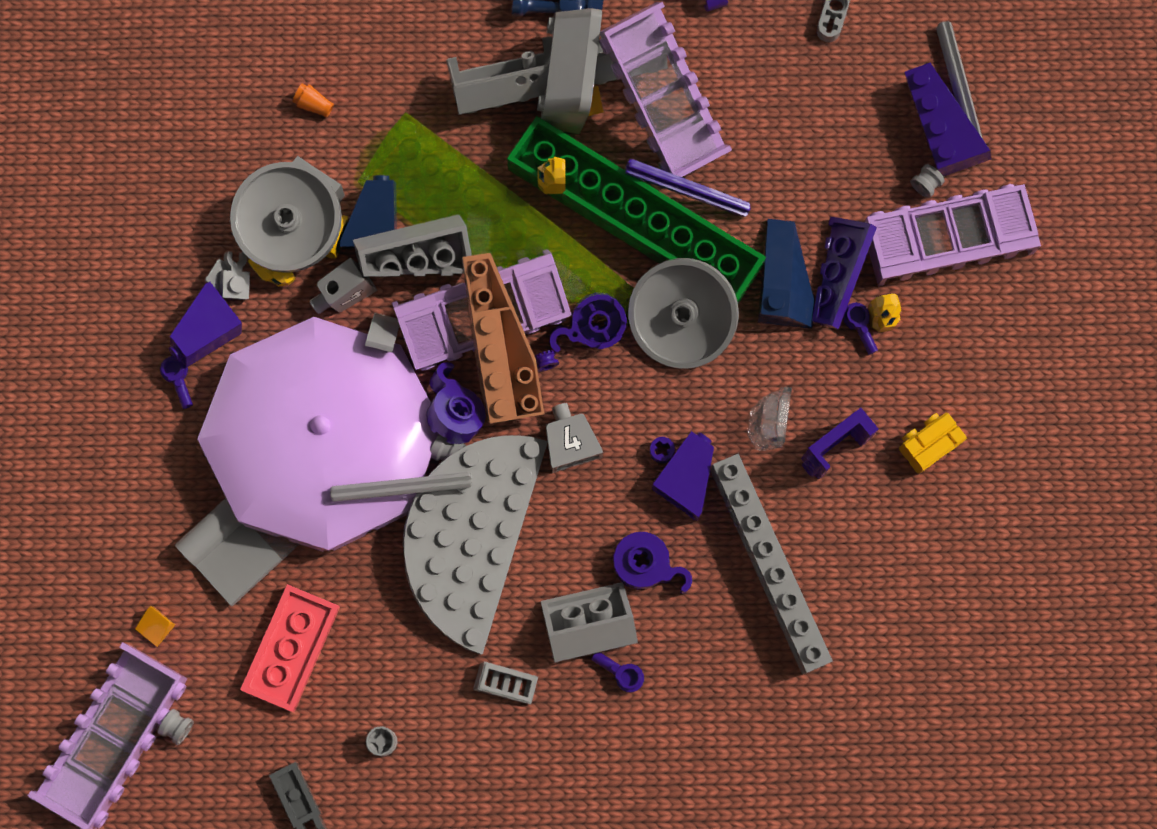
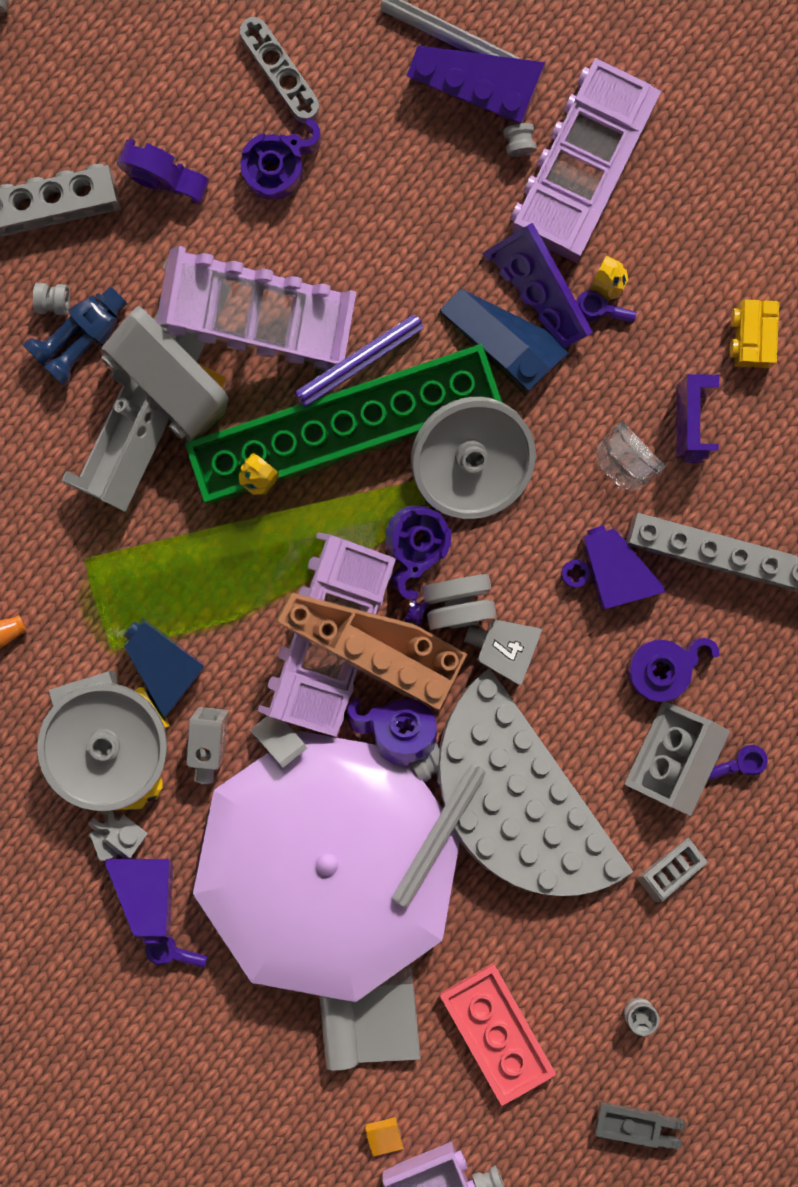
camera: 50 degrees left, 10 degrees up
(416, 249) = (226, 652): light grey wedge -> none
(576, 380) = (459, 602): none -> light grey wheel
(785, 39) = (281, 150): none -> dark purple piece

